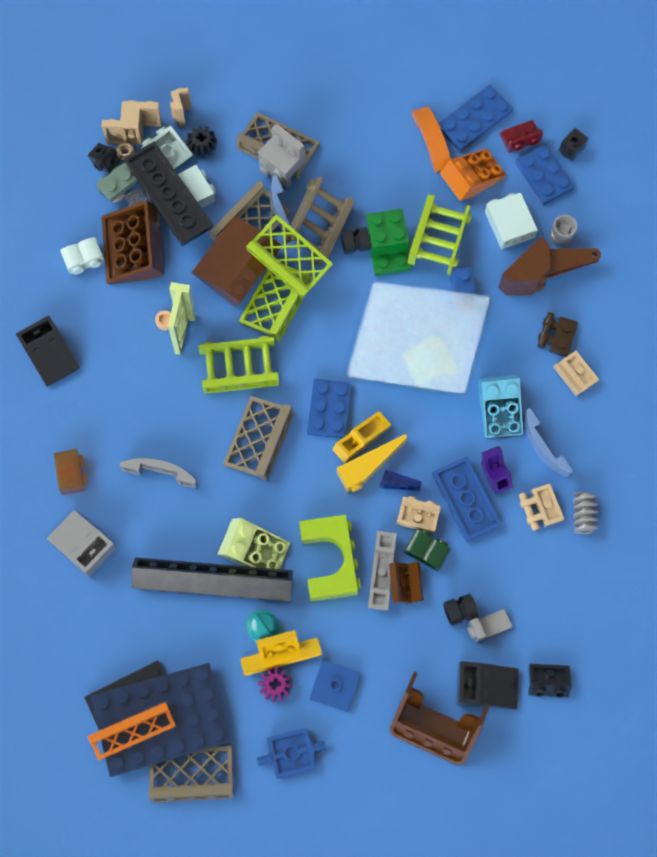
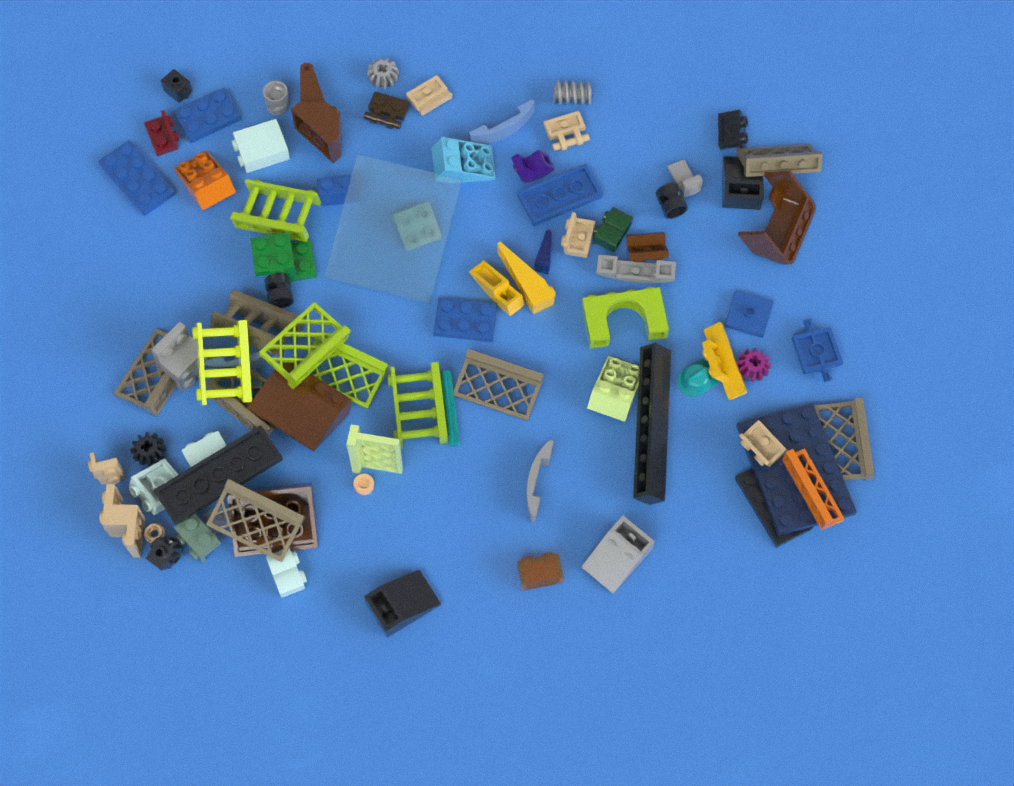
camera: 90 degrees left, 5 degrees down
(137, 226) = (262, 503): none -> dark tan fence
(178, 681) = (763, 444): none -> tan bracket
(236, 393) = (449, 408): none -> teal axle
(282, 202) = (240, 351): none -> neon yellow fence
(433, 137) = (156, 216): orange slope -> none
(502, 726) = (791, 158): none -> dark tan fence
(599, 322) = (382, 73): none -> light grey gear

